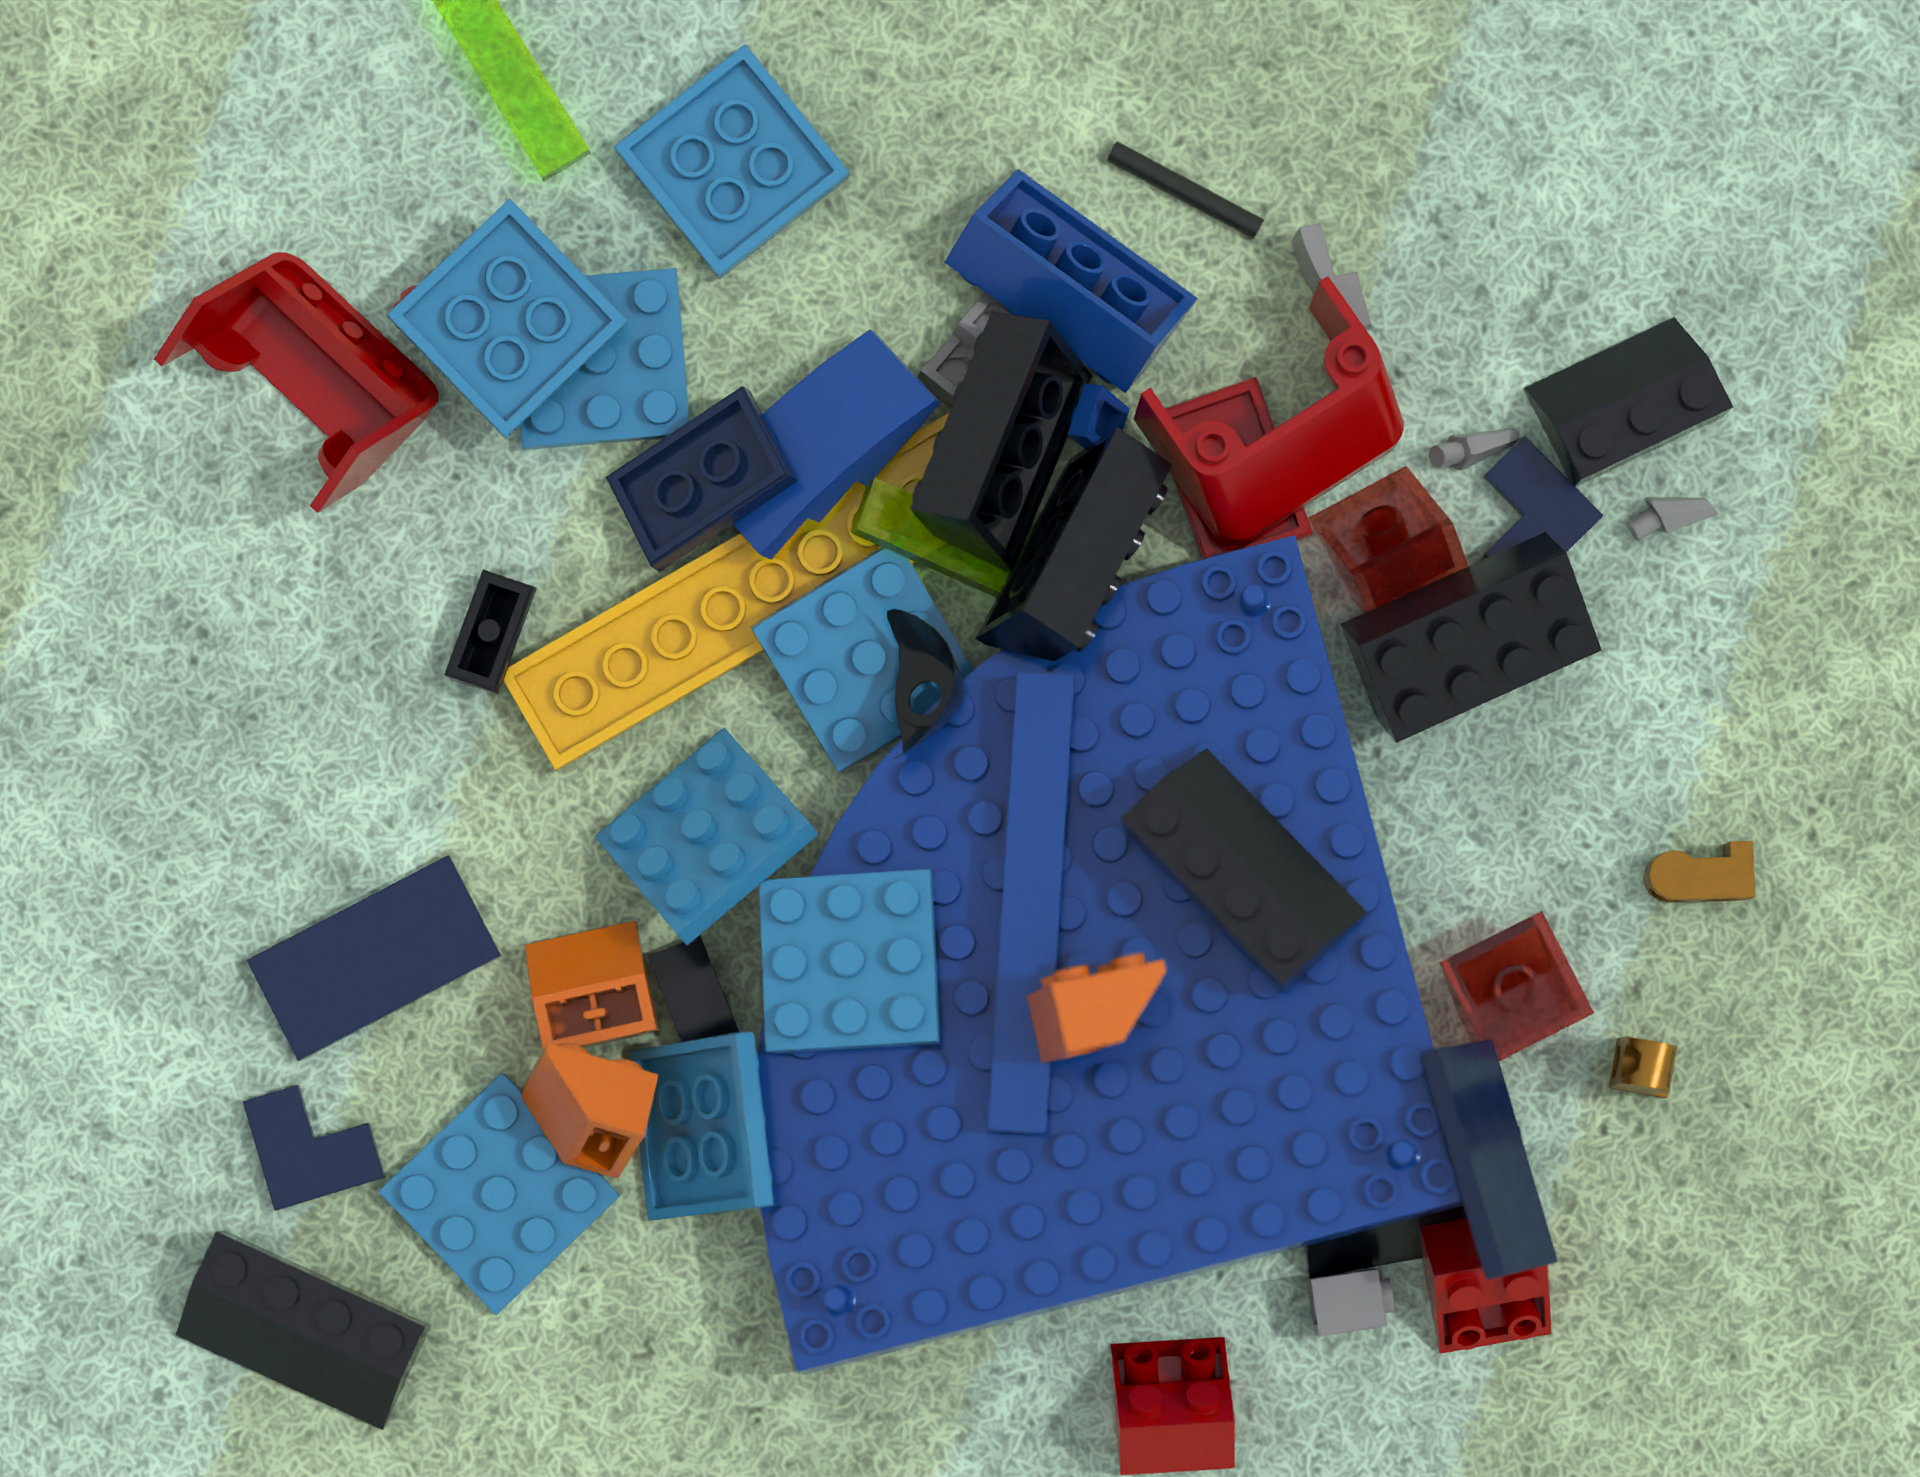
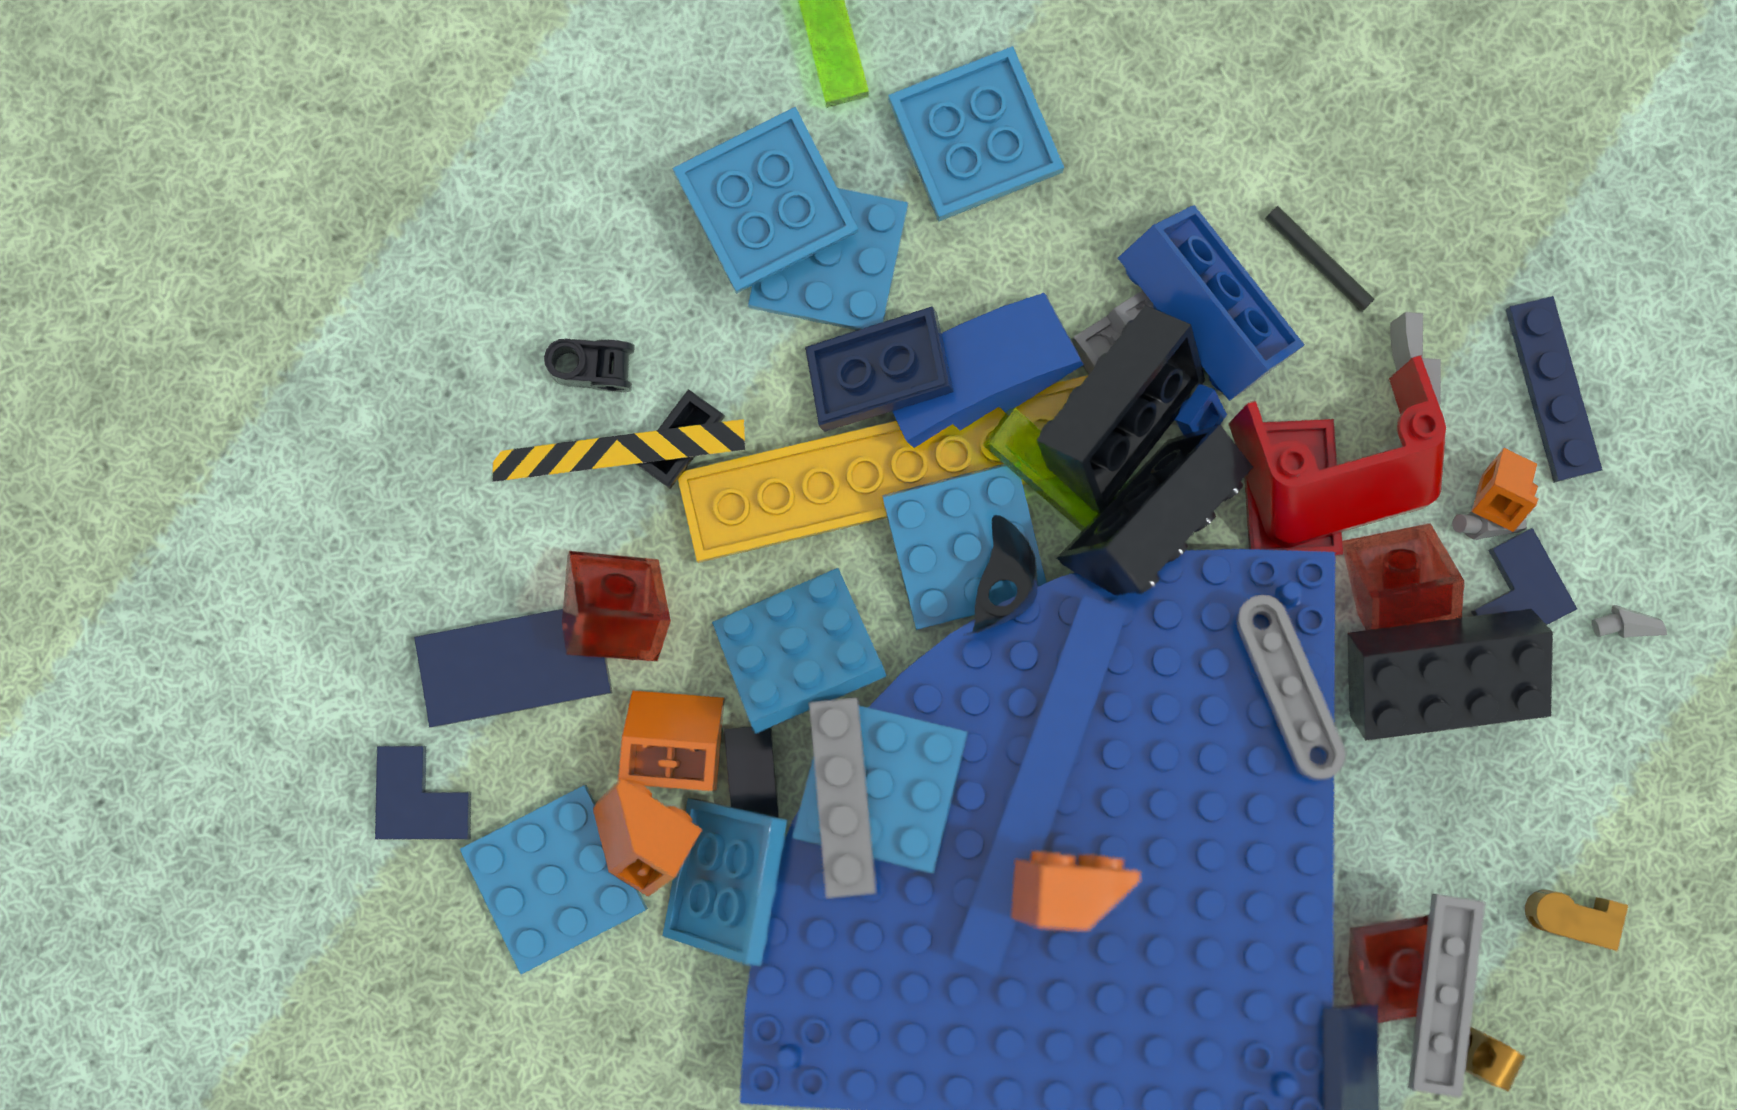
camera: 25 degrees right, 0 degrees up
(301, 1328) = (367, 937): black slope -> none
(317, 356) = (611, 185): red windscreen -> none
(360, 572) = (594, 364): none -> black piece
(422, 667) = (620, 450): none -> sticker
(475, 852) = (614, 607): none -> clear red slope
(809, 986) = (842, 798): none -> light grey plate
(1243, 868) = (1221, 811): black slope -> none
(1283, 706) = (1290, 687): none -> light grey plate
(1479, 402) = (1507, 490): none -> orange brick
(1504, 264) = (1553, 389): none -> dark blue plate
(1564, 1002) = (1446, 995): none -> light grey plate
(1628, 401) = (1624, 524): black slope -> none

